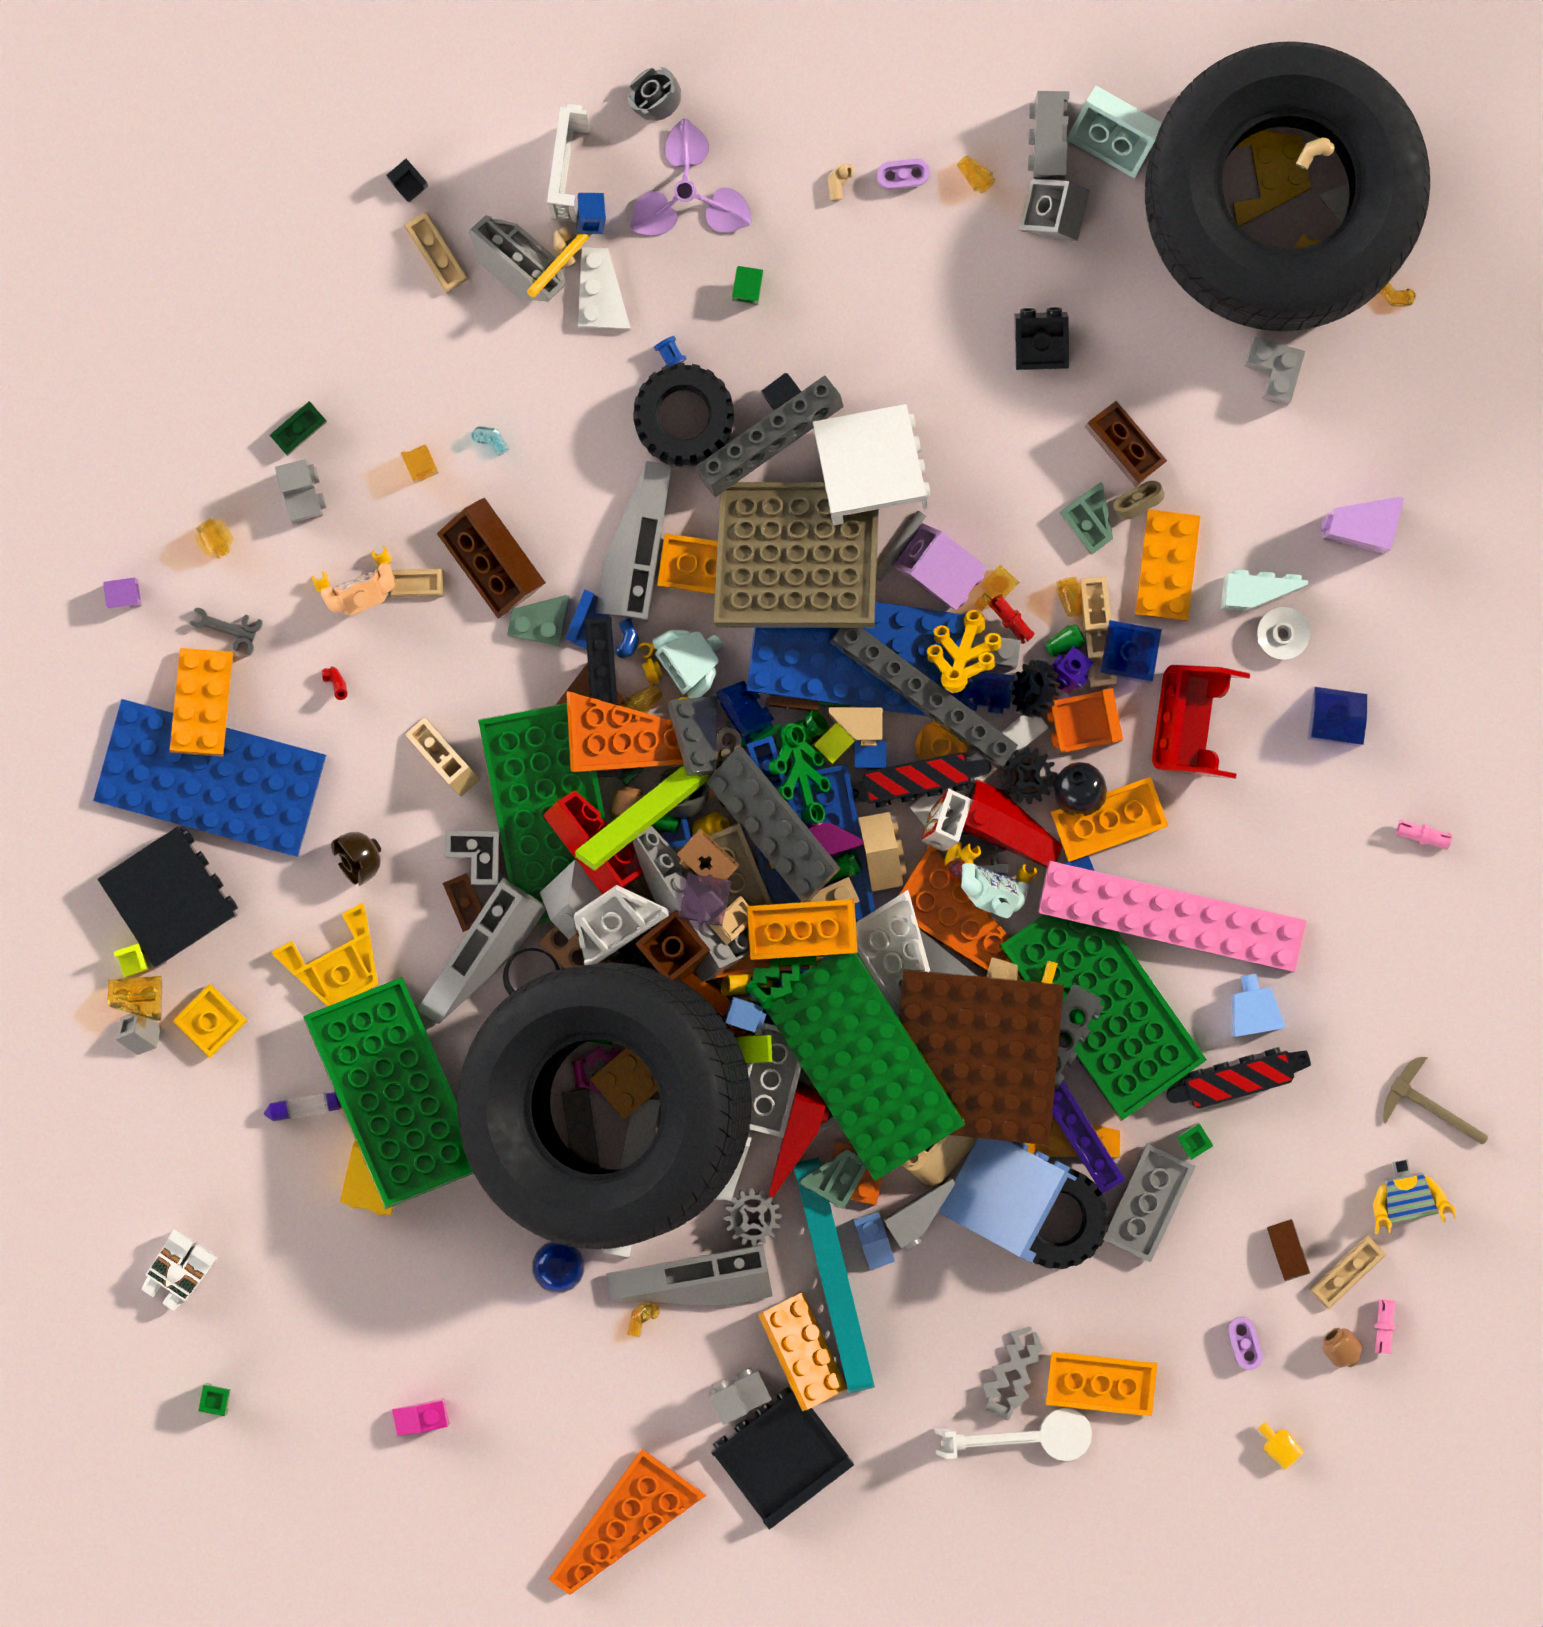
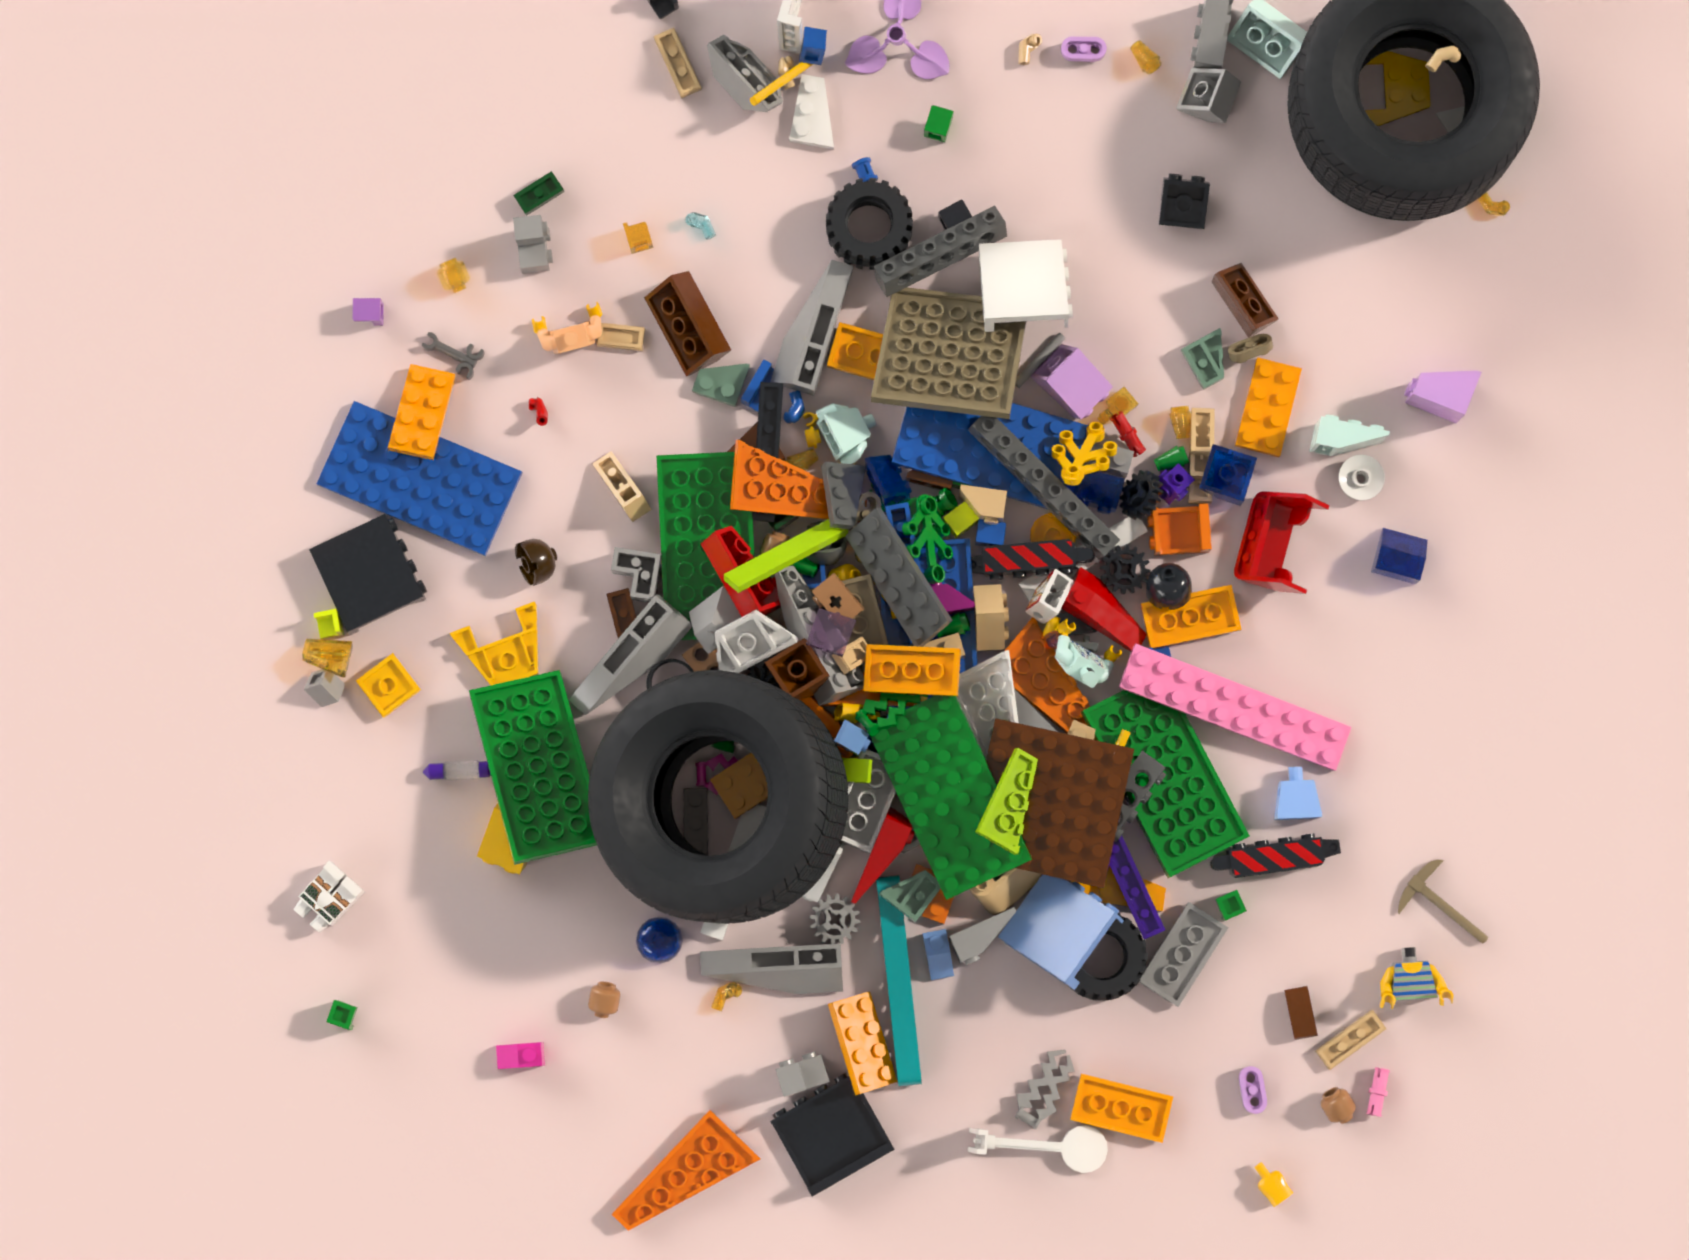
camera: 15 degrees right, 5 degrees down
(506, 1342) = (604, 999): none -> medium nougat head
(928, 1076) = (1006, 810): none -> lime wing
(1281, 363) = (1386, 247): light grey brick -> none
(1423, 834) = (1462, 666): bright pink pin -> none

